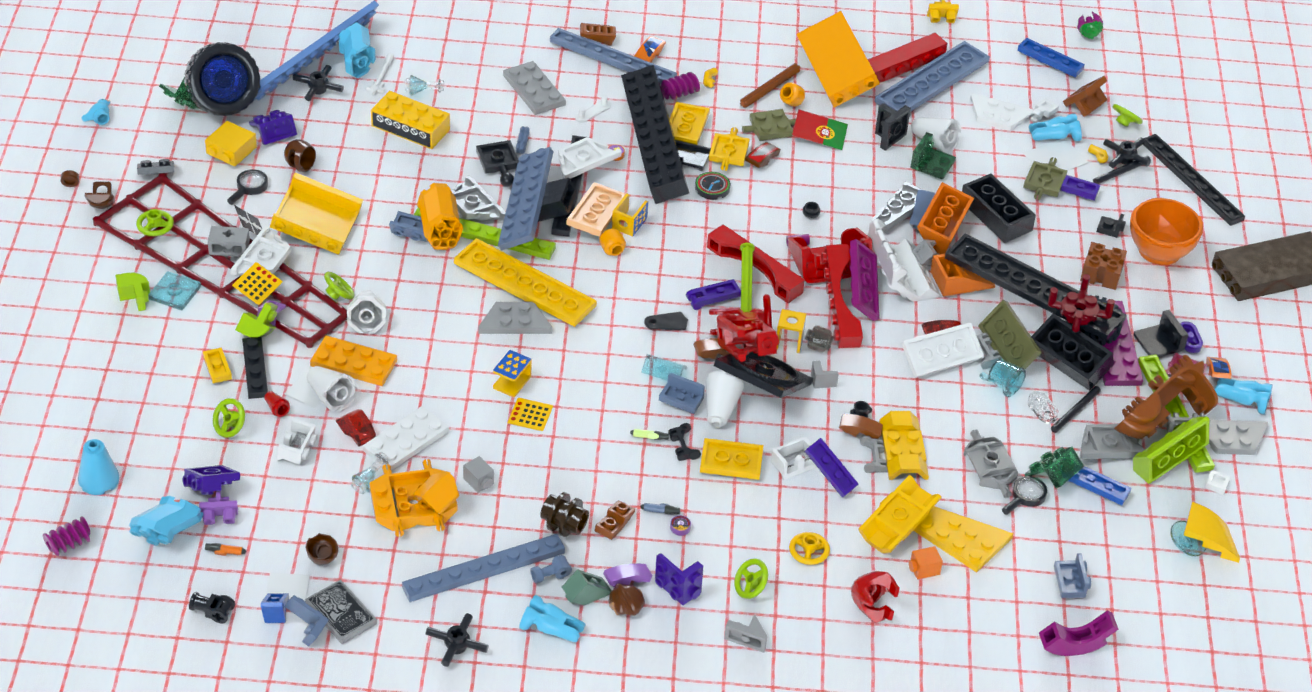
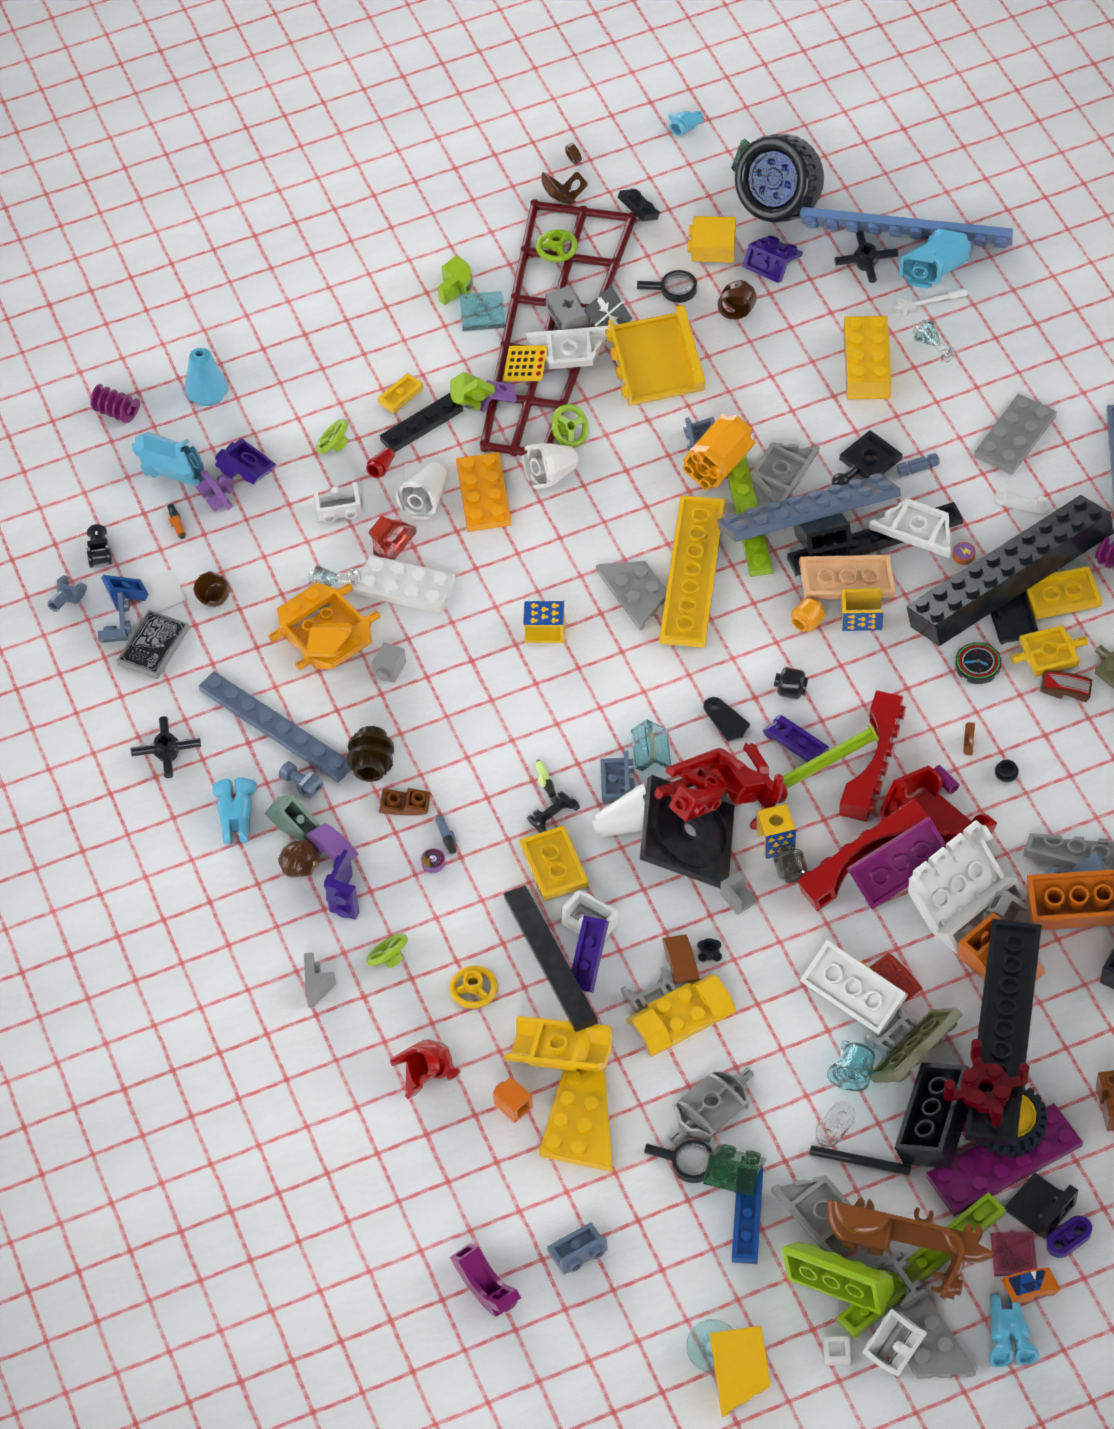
camera: 70 degrees right, 10 degrees up
(243, 646) = (66, 593): none -> sand blue piece
(530, 414) = (509, 667): yellow sticker -> none
(665, 274) = (791, 683): none -> black head
(774, 214) = (969, 738): none -> dark orange tile
(821, 488) = (550, 959): none -> black tile
(1232, 445) = (894, 1342): none -> white window

